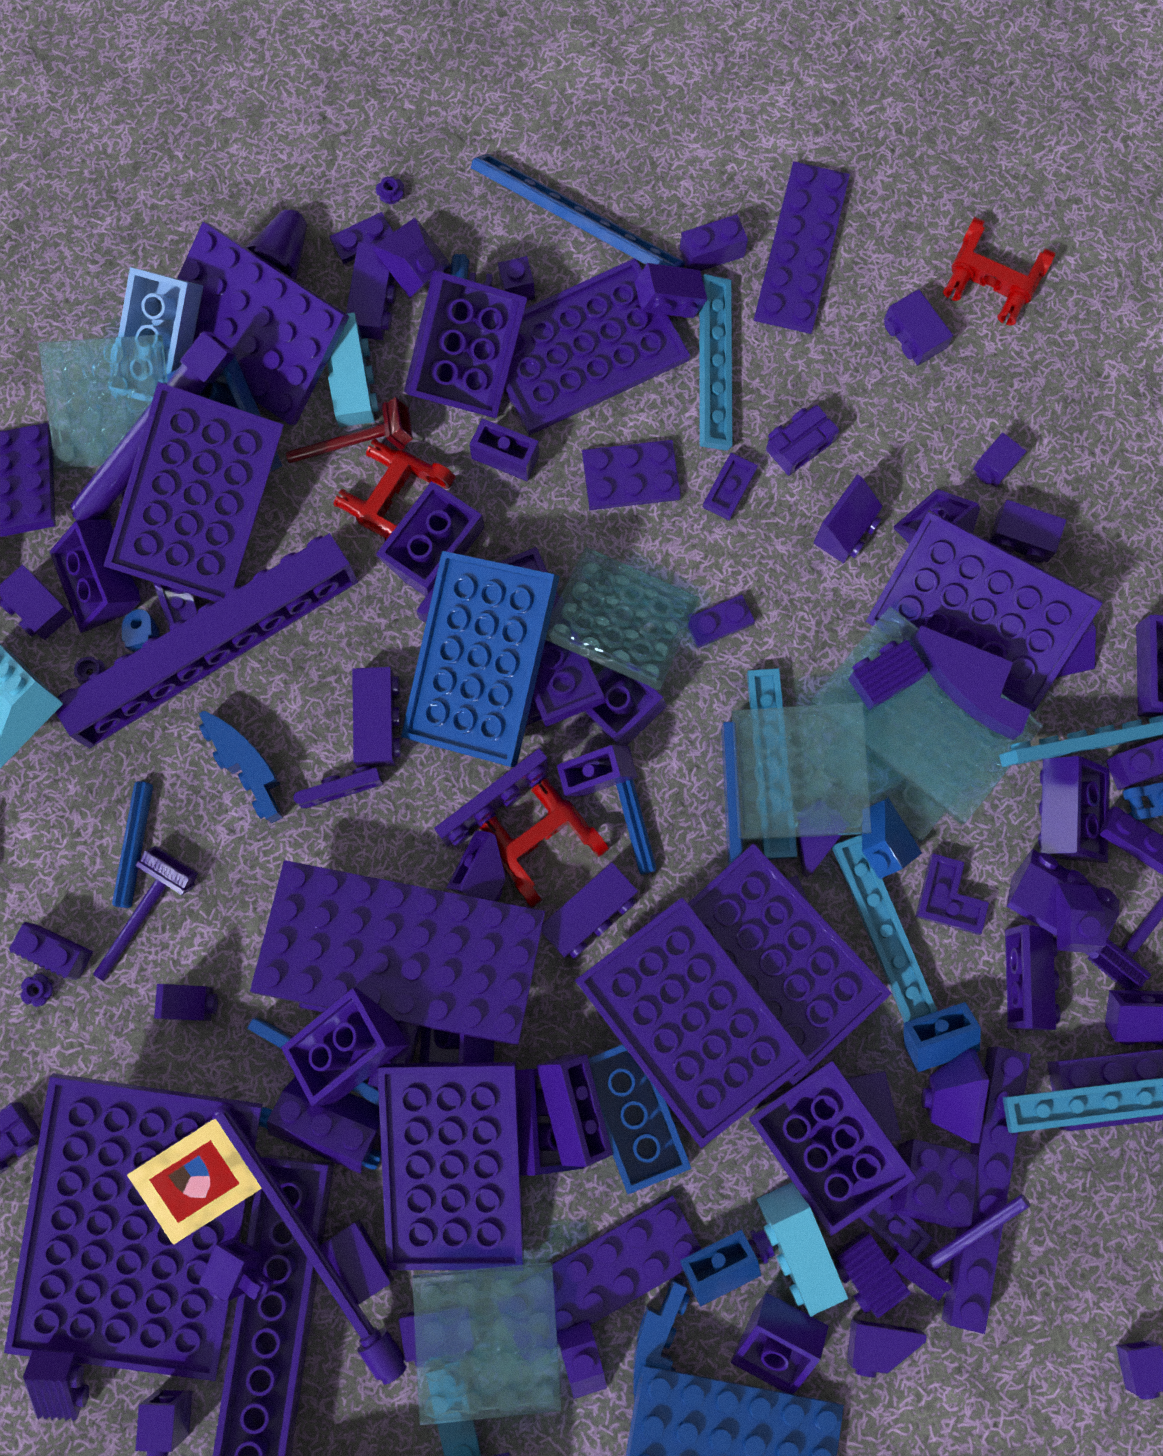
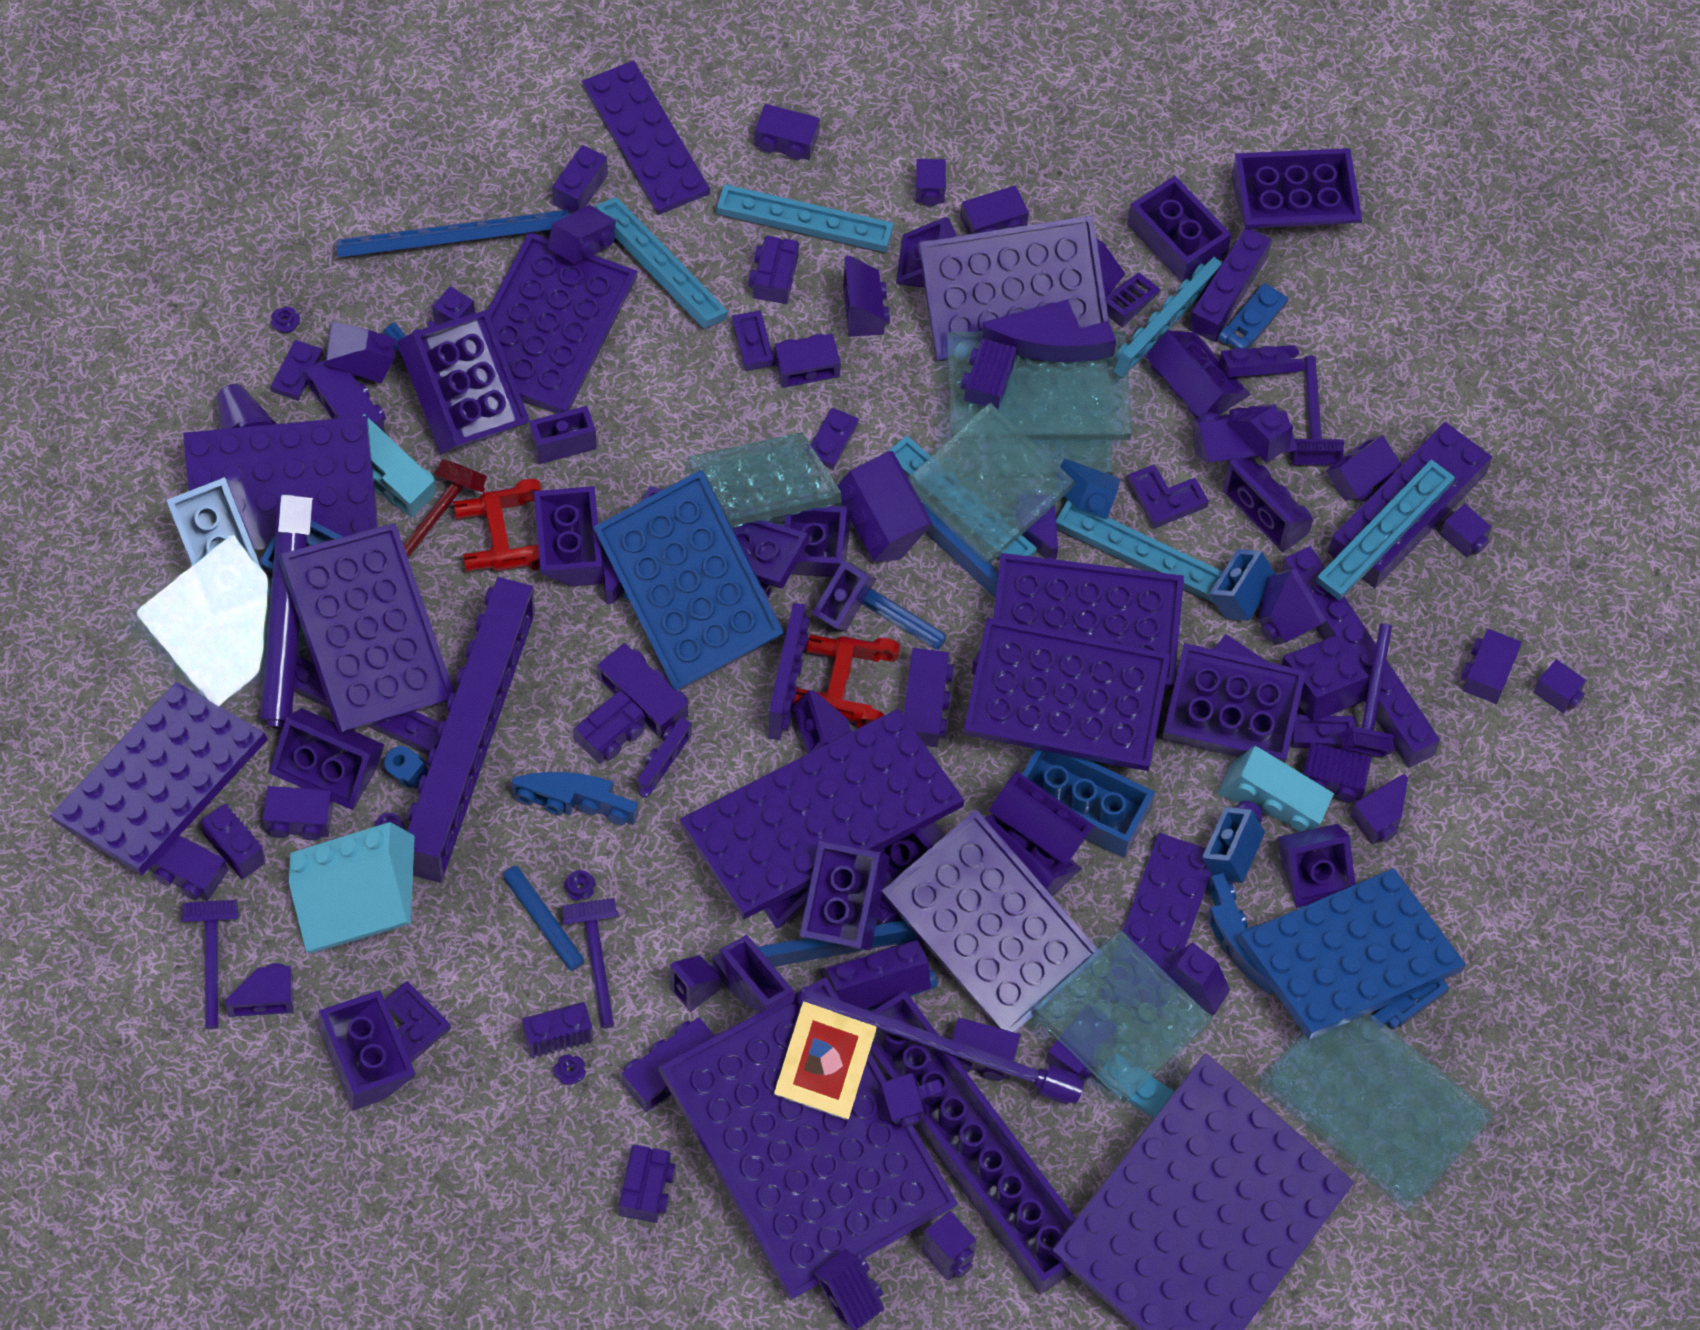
camera: 45 degrees left, 15 degrees down
(109, 1055) = (643, 1077): none -> dark purple brick
(175, 837) = (576, 878): none -> dark purple plate
(211, 1052) = (751, 975): none -> dark purple slope
(320, 728) = (610, 727): none -> dark purple brick
(630, 475) = (670, 387): dark purple plate -> none
(698, 719) = (884, 507): none -> dark purple slope
(757, 537) = (807, 360): none -> dark purple brick
(867, 414) = (805, 218): none -> dark azure plate
(979, 269) = (792, 60): red connector -> none
(1055, 699) = (1123, 316): none -> dark purple slope
(1097, 1294) = (1491, 666): none -> dark purple brick

